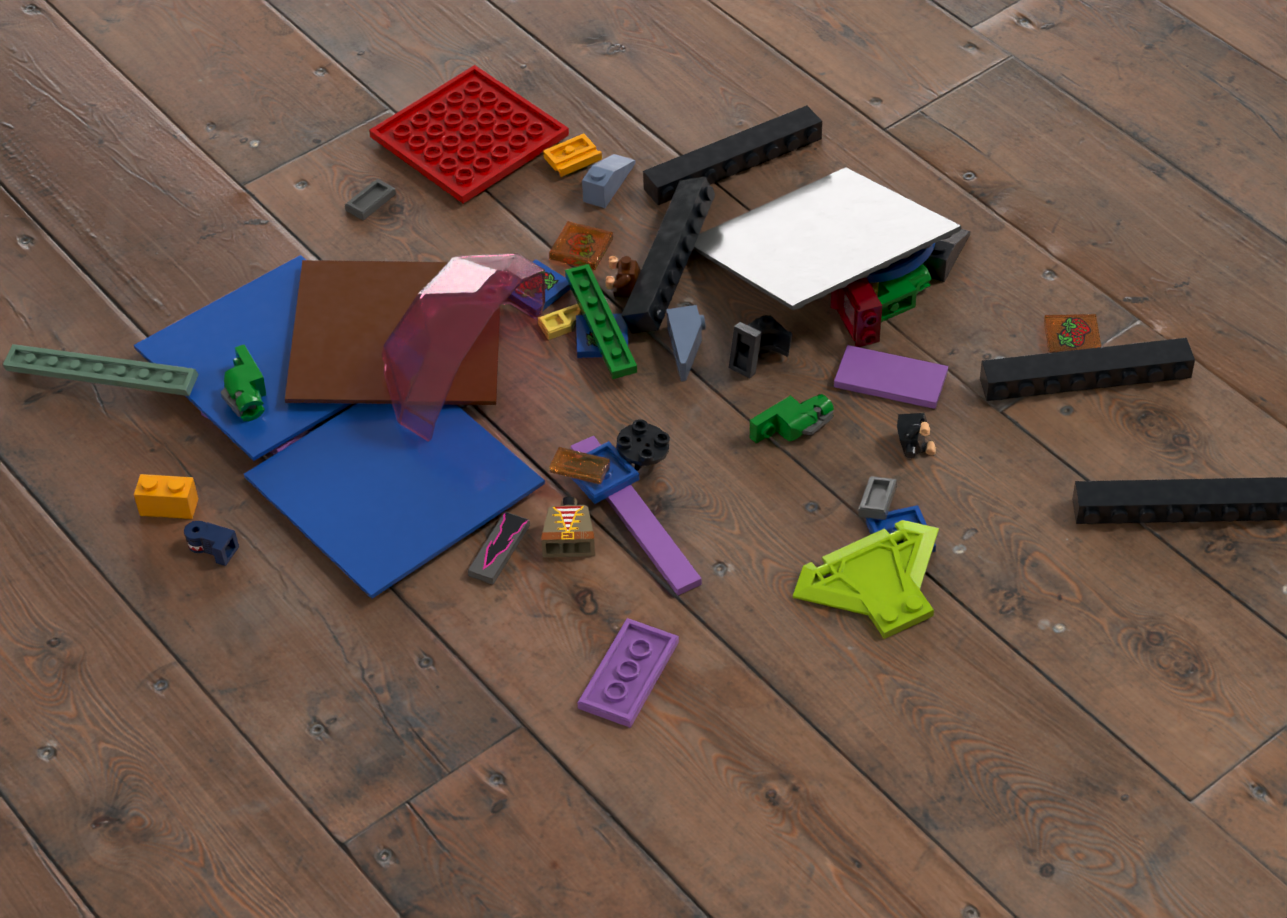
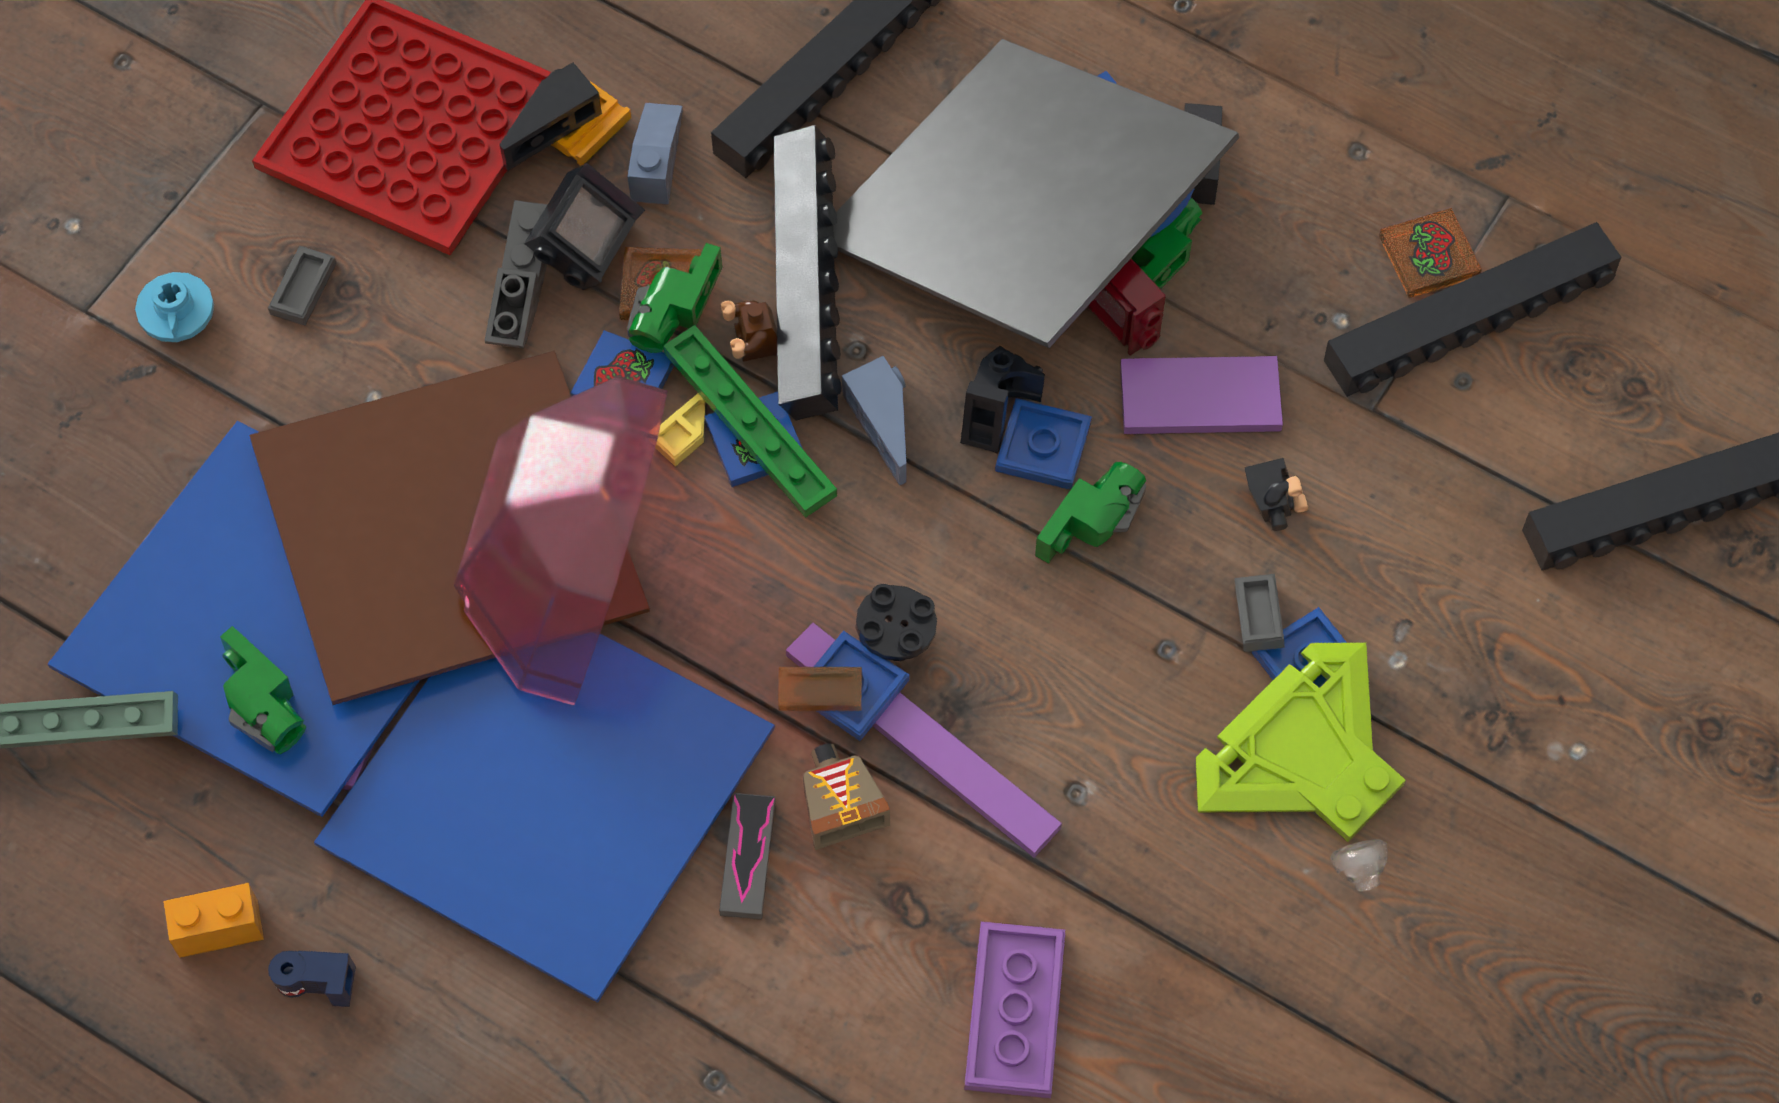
camera: 20 degrees left, 15 degrees up
(291, 191) = (174, 307): none -> medium azure piece
(500, 221) = (517, 282): none -> dark grey slope
(545, 200) = (583, 226): none -> black window
(550, 141) = (554, 110): none -> black slope
(584, 249) = (673, 300): none -> green plate
(779, 378) = (1043, 444): none -> blue tile
(885, 647) = (1361, 863): none -> clear brick

